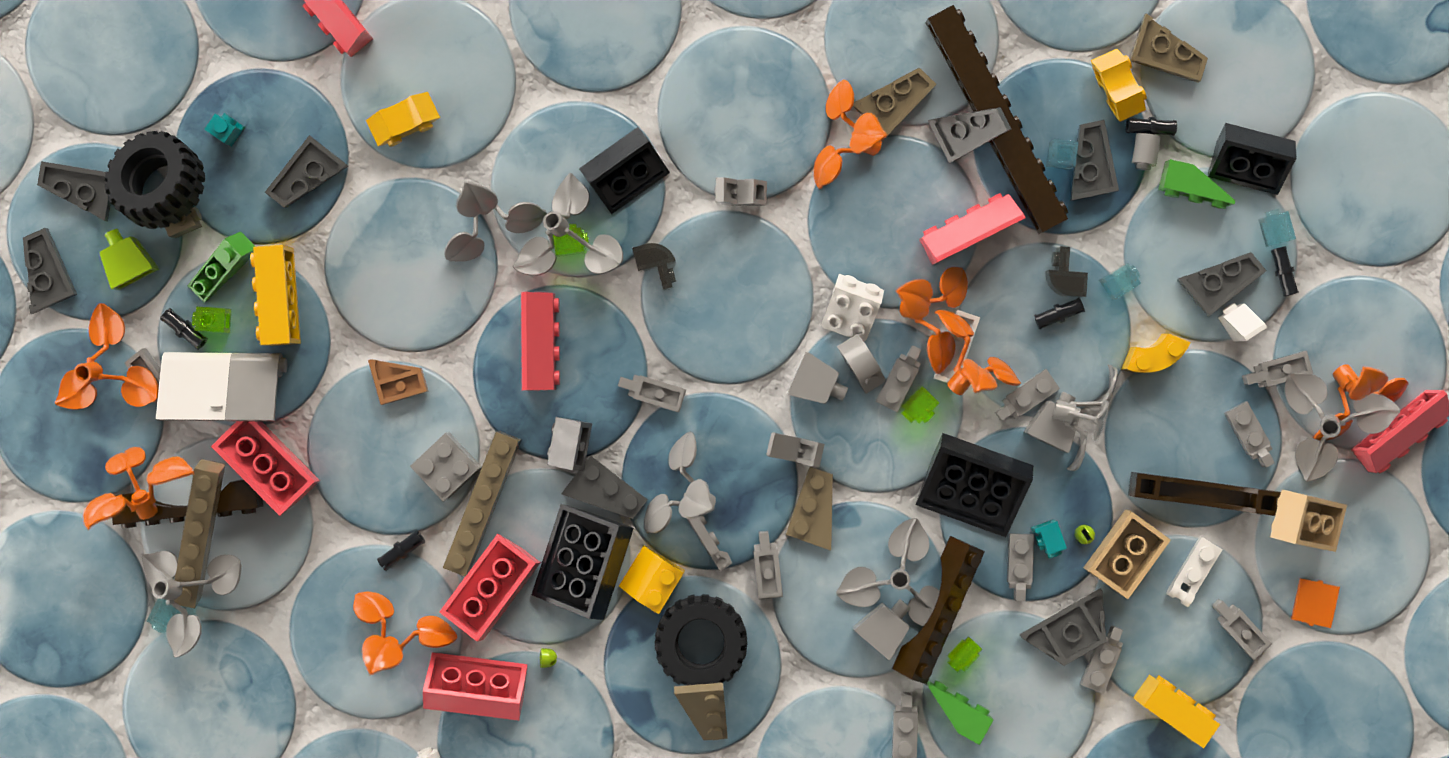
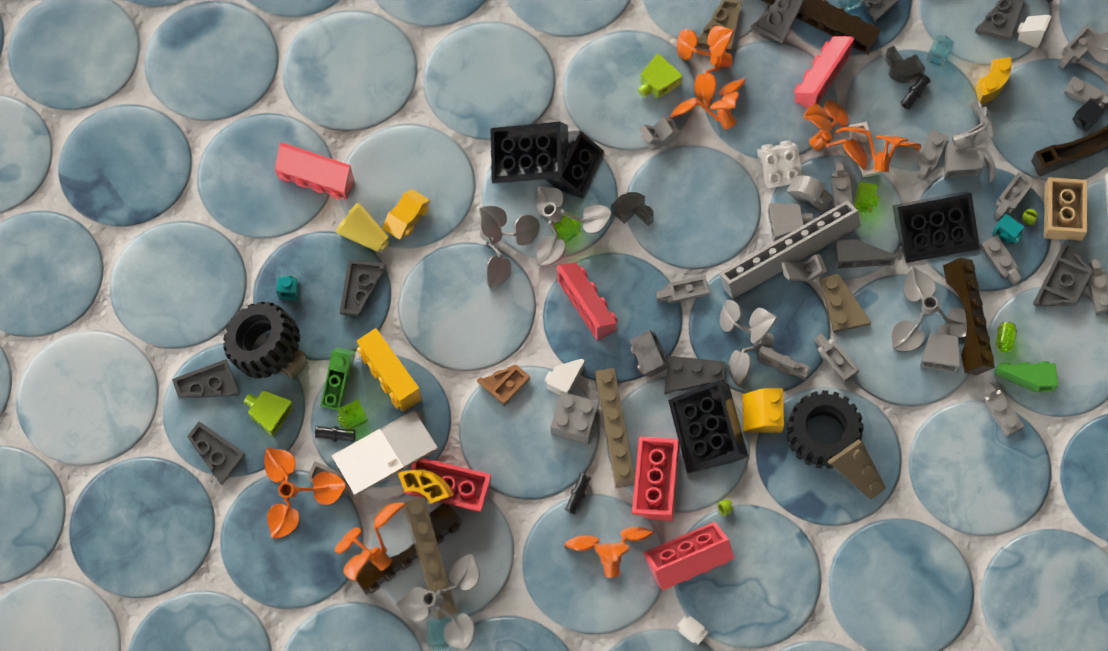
camera: 30 degrees left, 20 degrees down
(233, 458) = (426, 483): none -> yellow brick
(344, 110) = (363, 229): none -> light yellow cone
(462, 414) = (564, 376): none -> white slope
(577, 131) = (528, 152): none -> black slope
(782, 122) = (659, 78): none -> lime torso
(796, 418) = (790, 248): none -> light grey brick
(824, 213) = (724, 105): none -> orange plant
(866, 464) = (859, 254): none -> dark grey slope
(1083, 500) = (1012, 195): none -> light grey hinge
(1230, 459) = (1088, 115): none -> black brick

